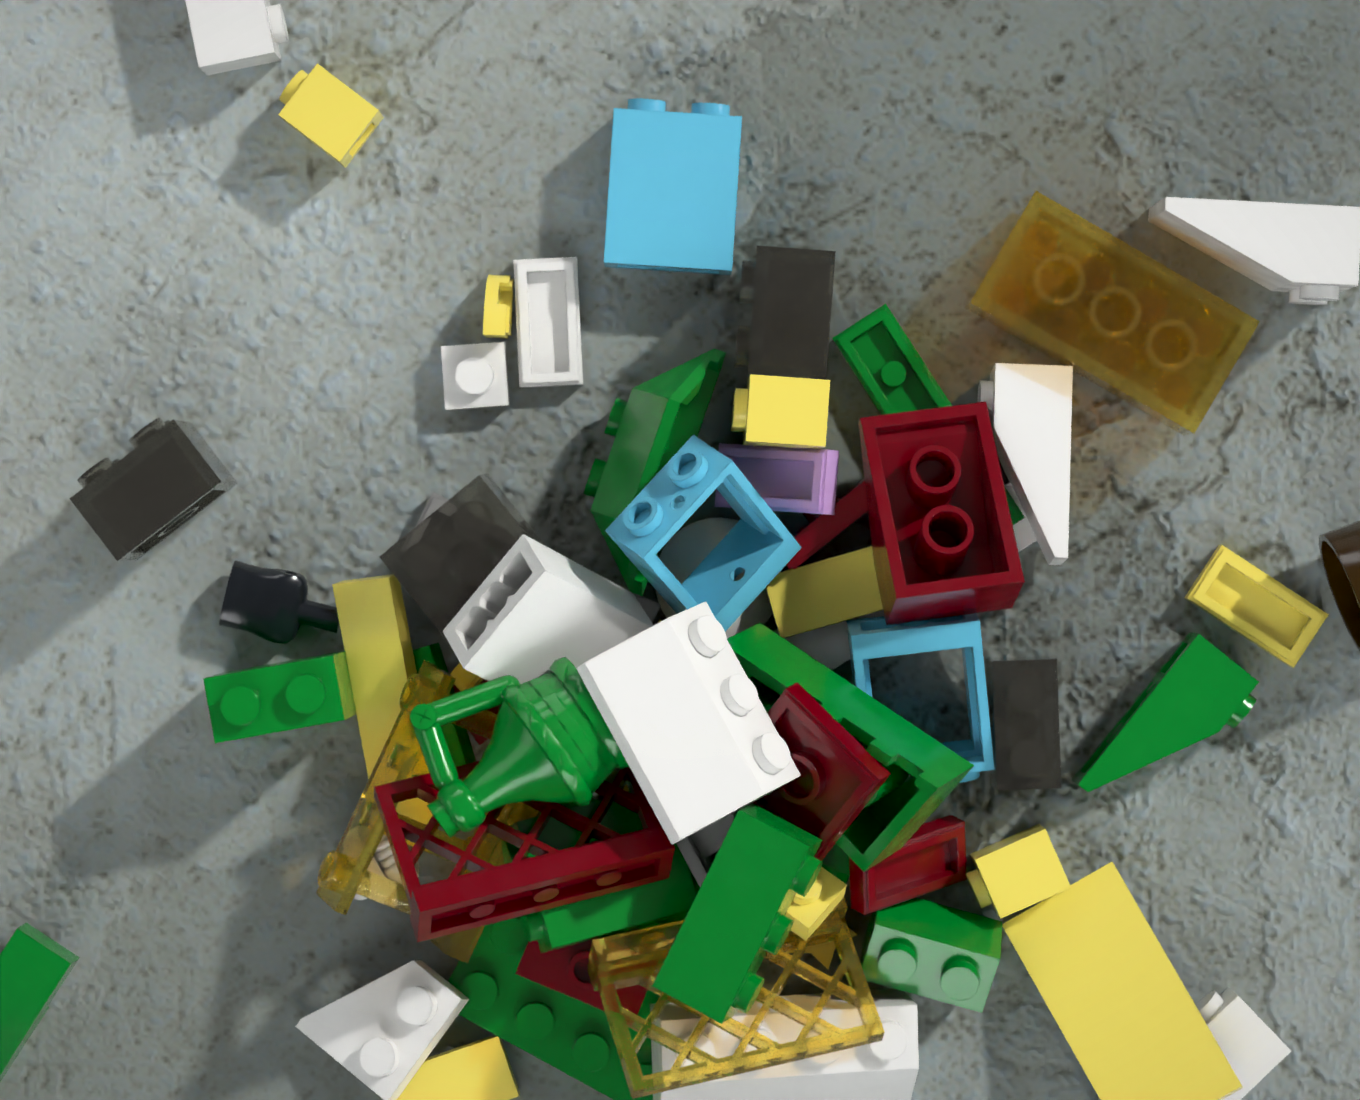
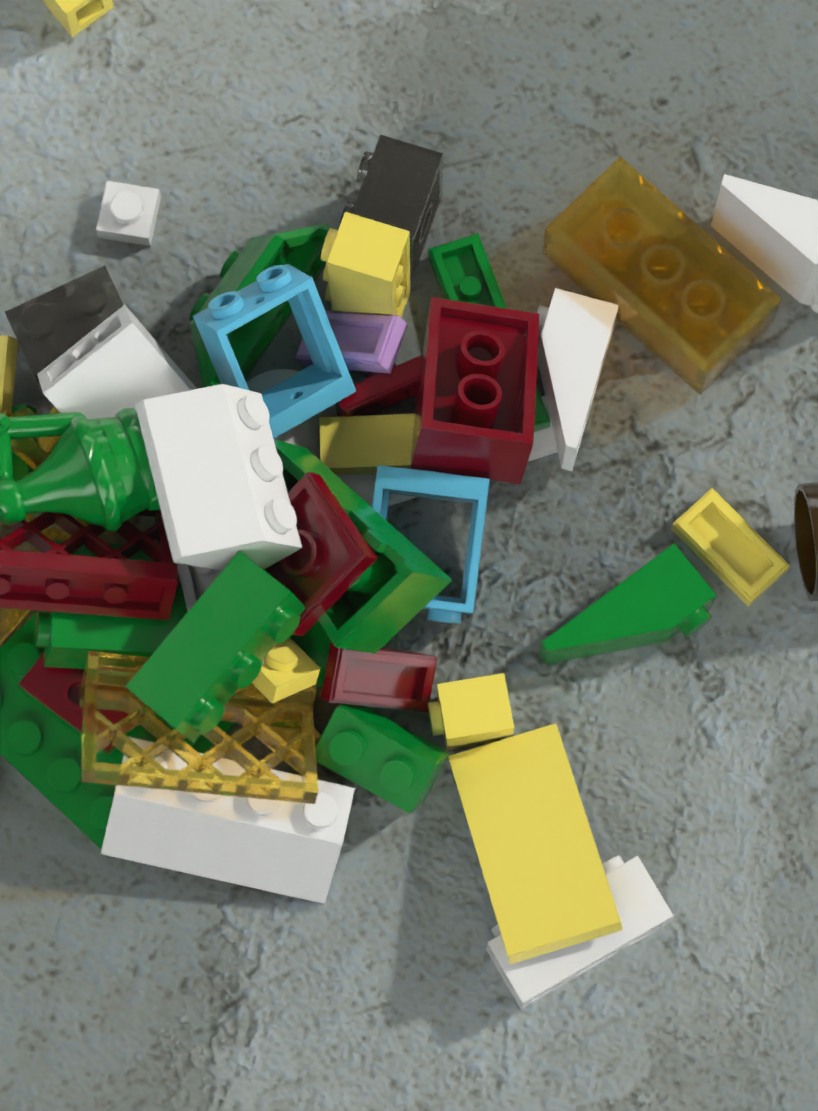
camera: 15 degrees right, 15 degrees down
(498, 307) = (161, 164): light yellow tile -> none
(548, 322) = (199, 187): white tile -> none
(673, 188) = (327, 104): medium azure brick -> none
(1024, 722) = (507, 587): clear smoke brick -> none

